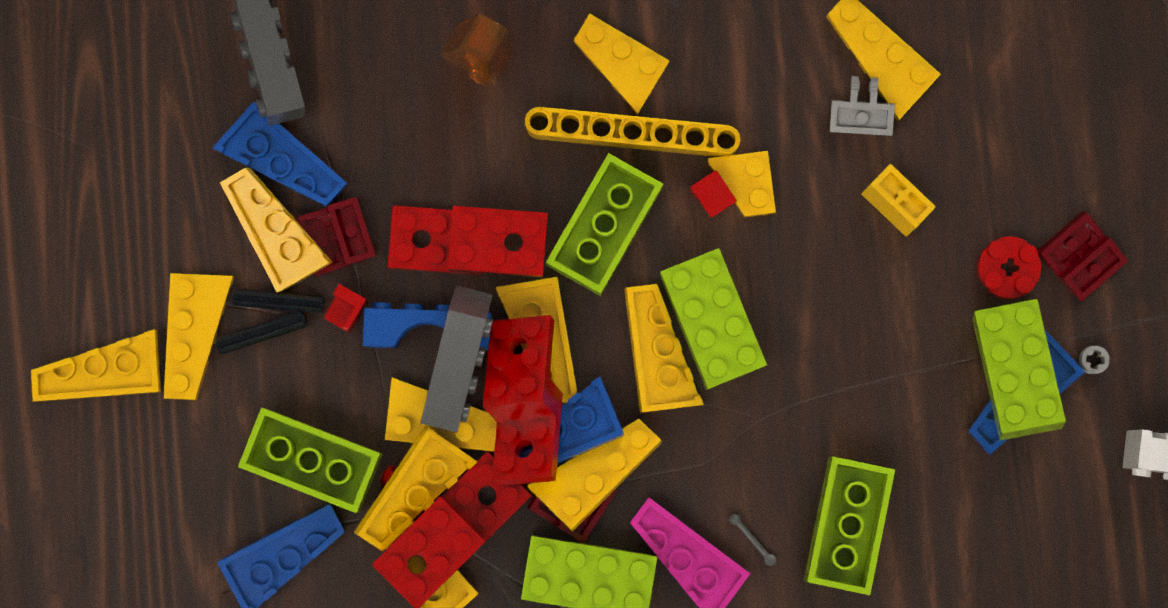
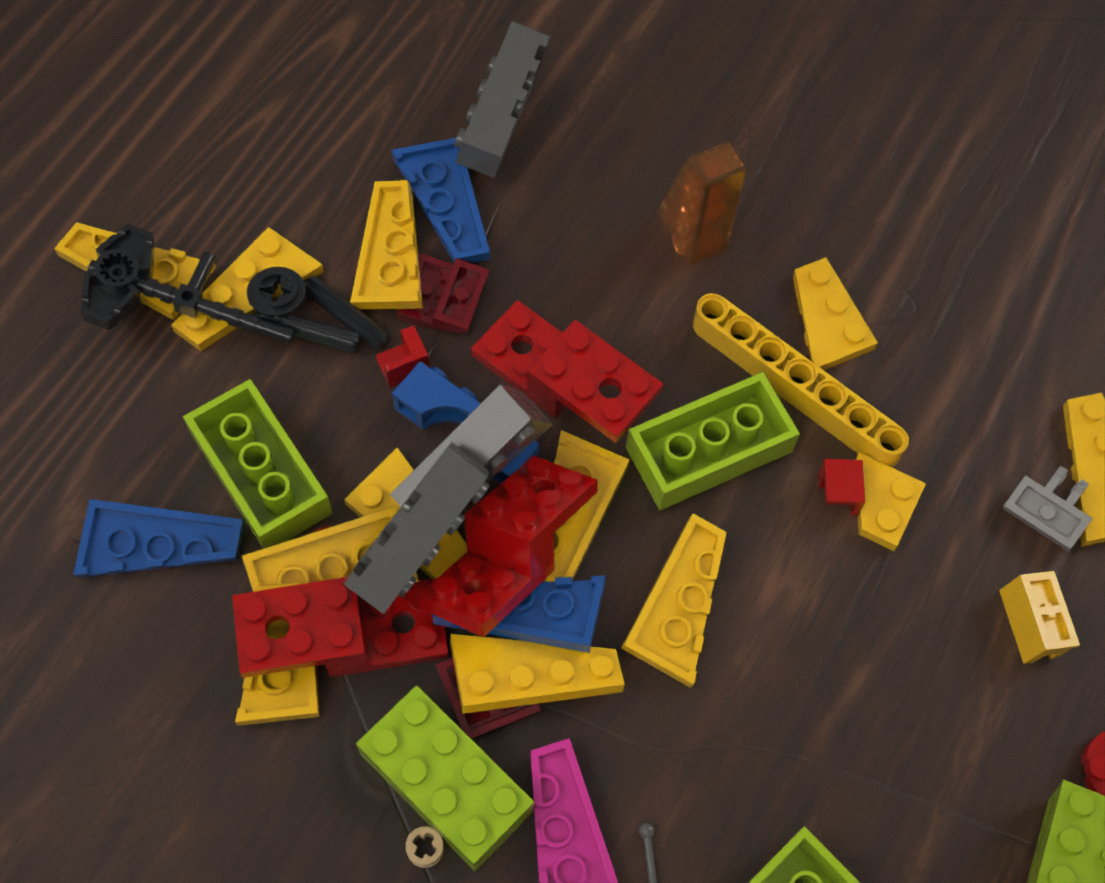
camera: 30 degrees right, 20 degrees down
(106, 394) = (126, 270): none -> black bar
(207, 321) = (266, 283): none -> black gear
(461, 441) = (417, 527): none -> dark grey wedge
(712, 319) = (762, 605): lime brick -> none

